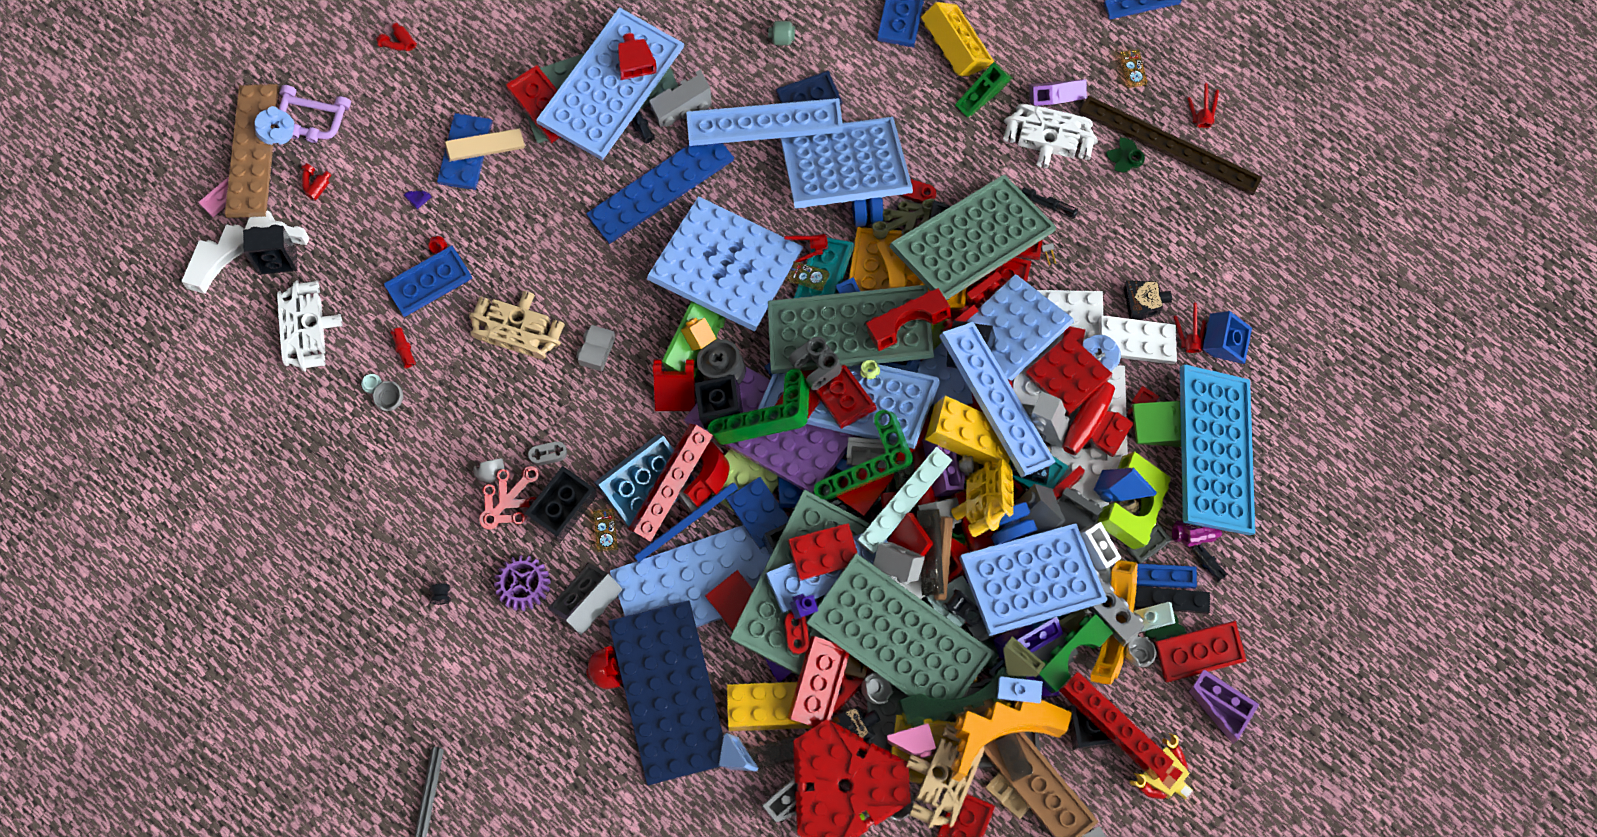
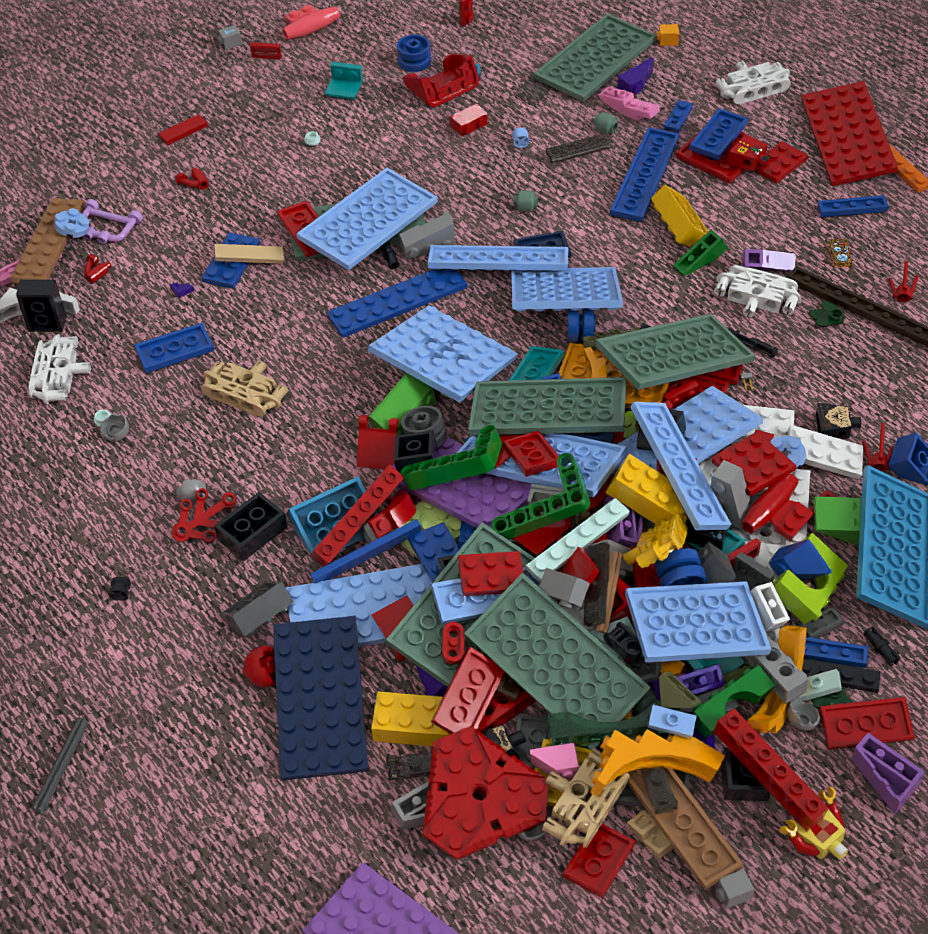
camera: 10 degrees right, 20 degrees down
(403, 347) = (138, 394): red pin -> none
(437, 244) = (185, 322): red plate -> none
(528, 578) = (199, 588): medium lavender gear -> none
(546, 449) = (249, 487): light grey beam -> none
(596, 348) = (312, 410): light grey brick -> none
(605, 530) = (289, 555): clear yellow tile -> none
(635, 58) = (392, 199): red torso -> none
(698, 333) = (406, 397): light orange brick -> none
(735, 756) = (373, 760): light blue slope -> none
(803, 606) = (462, 615): dark purple plate -> none
(807, 276) = (516, 371): clear yellow tile -> none
(817, 242) = (530, 347): red plant -> none
(822, 358) = (519, 422): dark grey piece -> none
(867, 366) = (561, 435): yellowish green plate -> none
(876, 688) = (526, 711): light grey hair -> none
(918, 192) = (626, 322): red plate -> none
(928, 307) = (623, 389): red arch -> none
(966, 465) = (643, 520): flat silver plate -> none
(1193, 534) = (869, 617): magenta rock -> none

